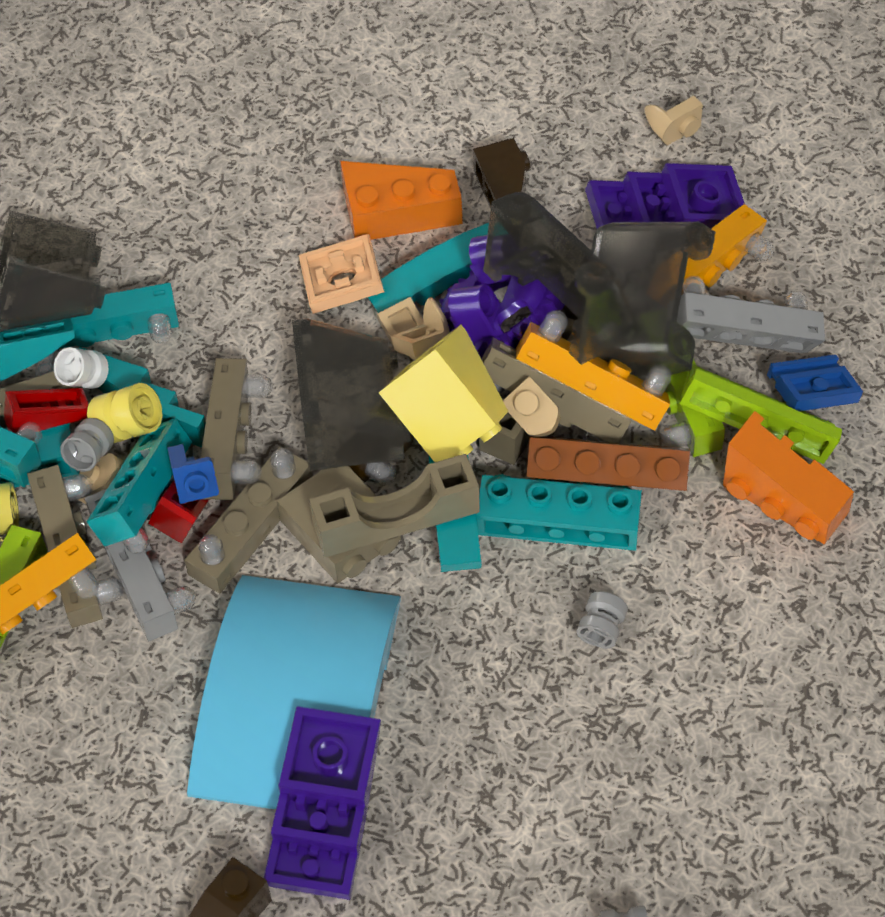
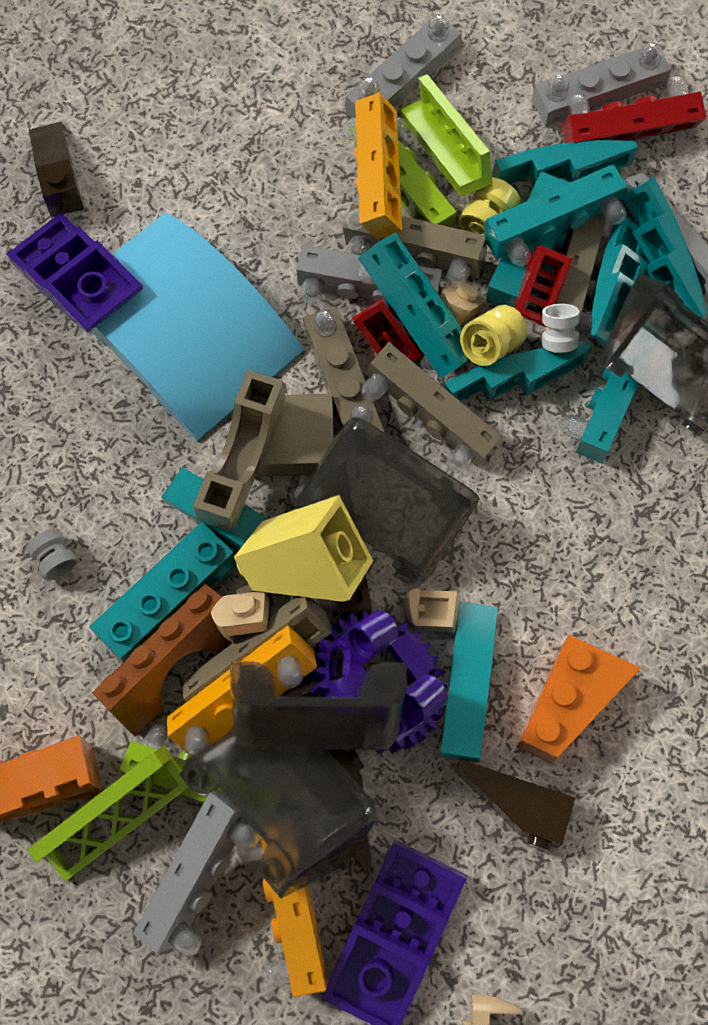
camera: 125 degrees right, 15 degrees up
(87, 444) = (483, 291): light grey wheel -> none
(192, 477) = (391, 328): blue bracket -> none
(324, 264) = (549, 589): light nougat piece -> none
(421, 338) = (388, 591): tan plate -> none
(814, 383) = (108, 894): blue plate -> none

